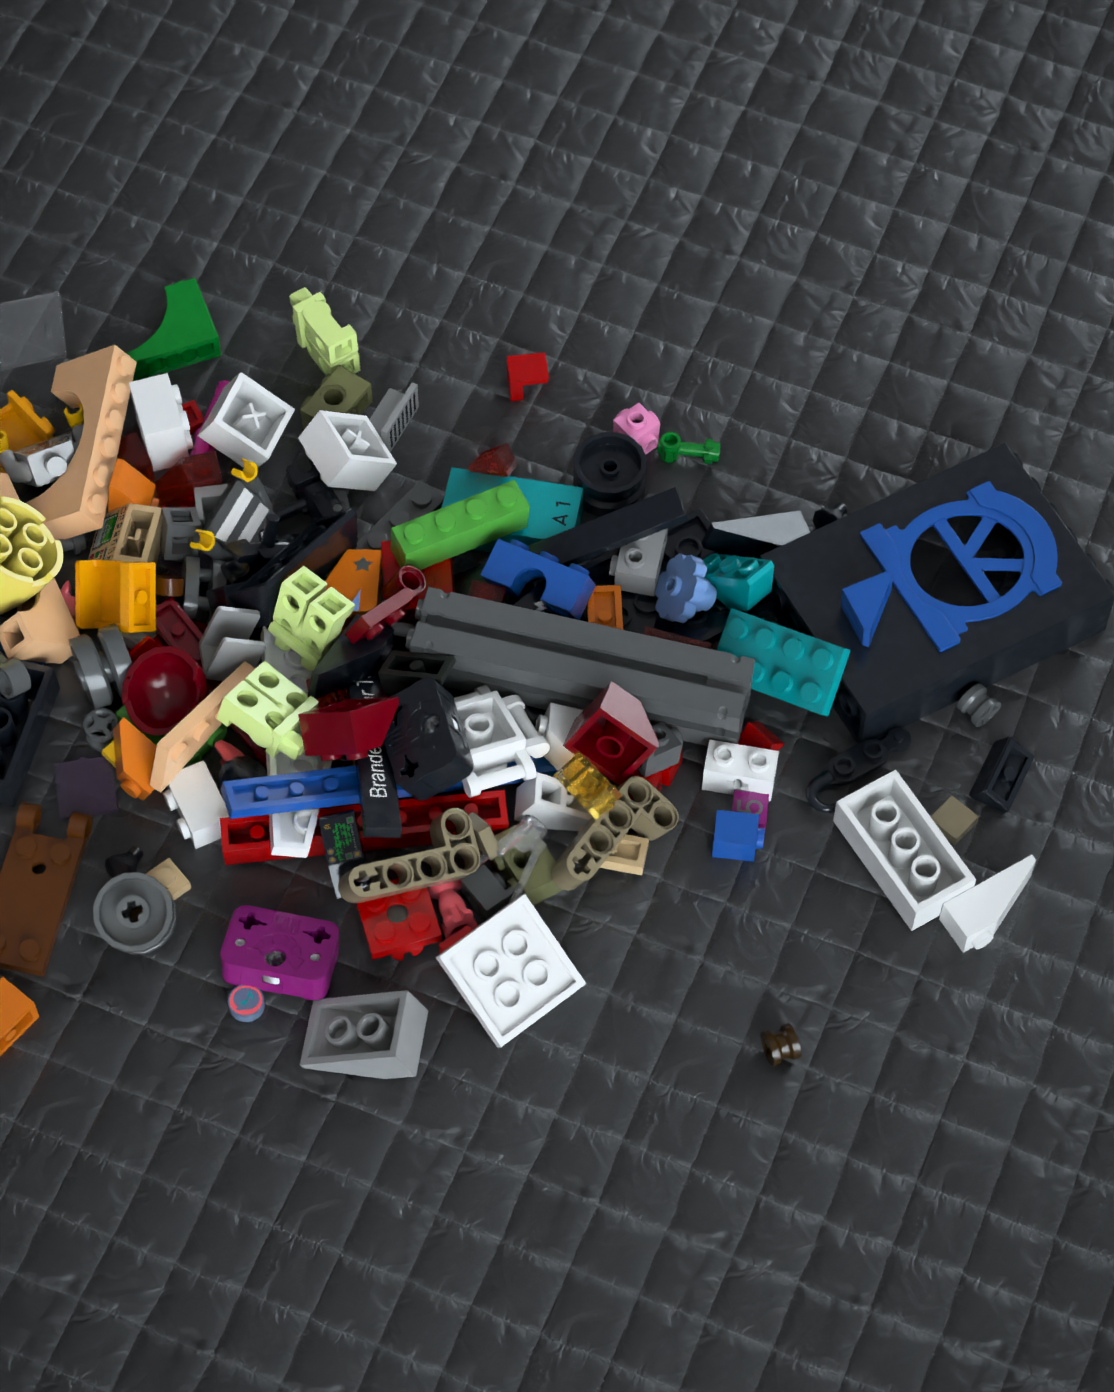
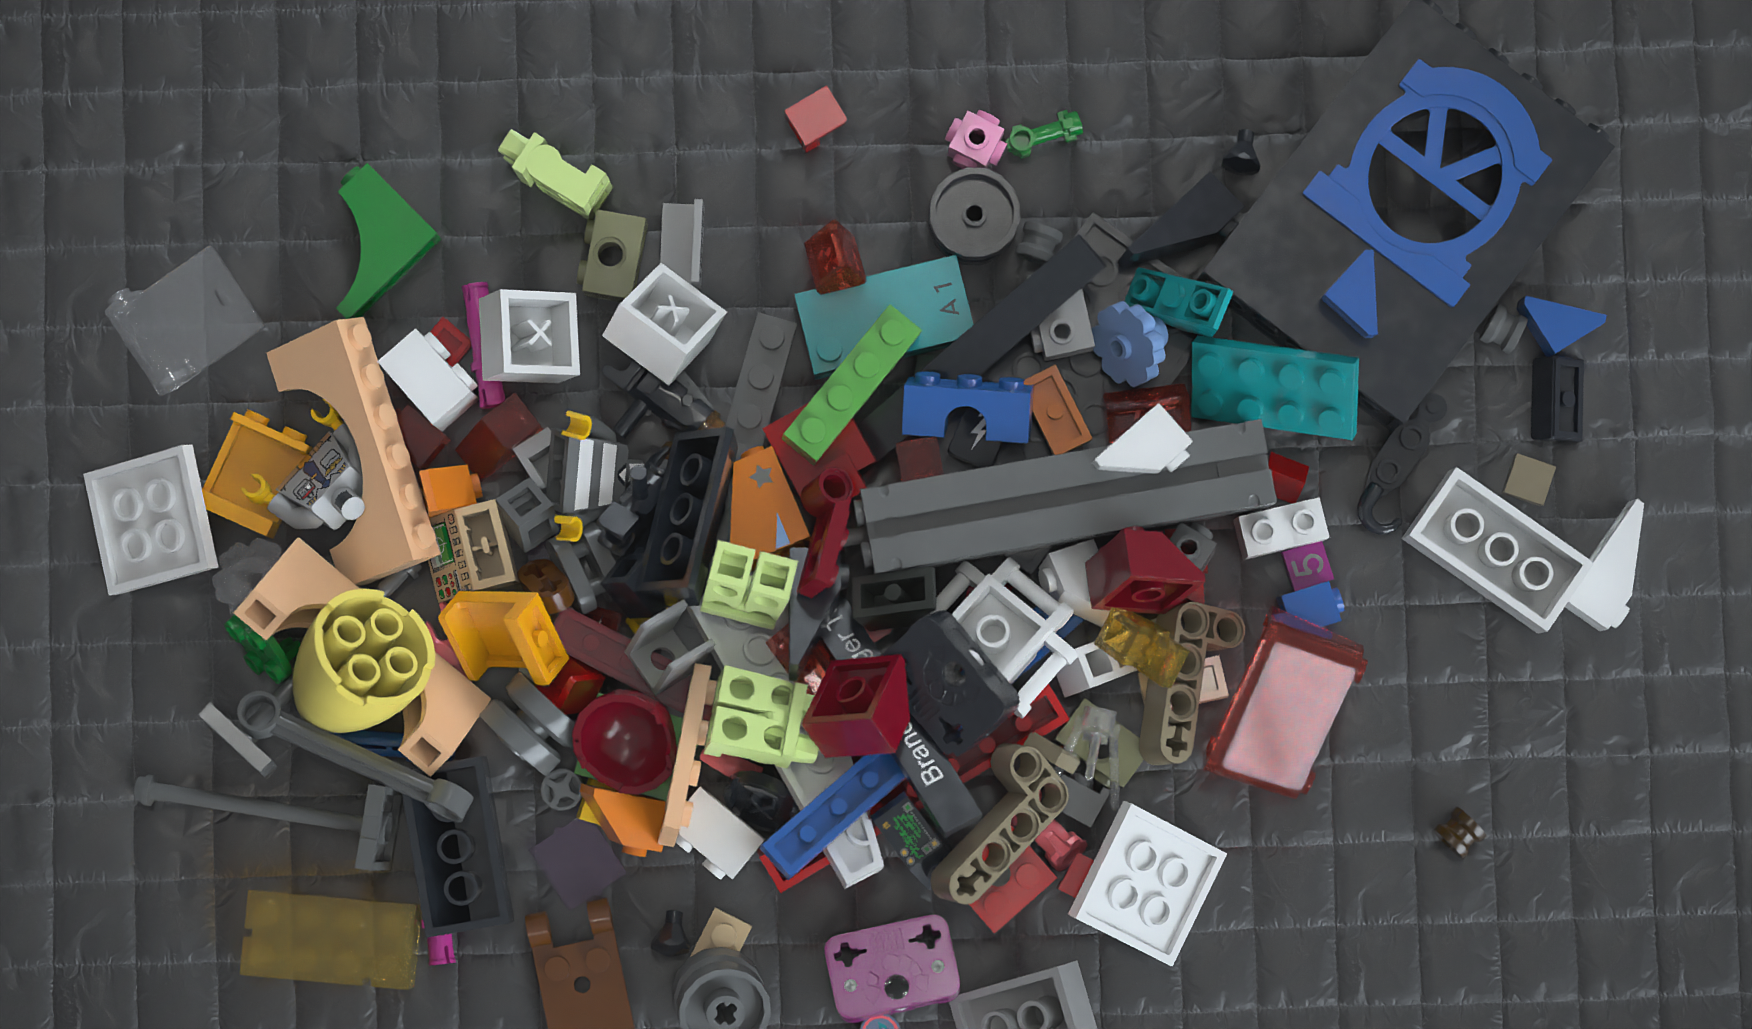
camera: 30 degrees left, 25 degrees up
(654, 634) = (1147, 446): none -> white slope
(676, 880) = (1284, 705): none -> clear red windscreen
(1025, 718) = (1557, 324): none -> blue slope

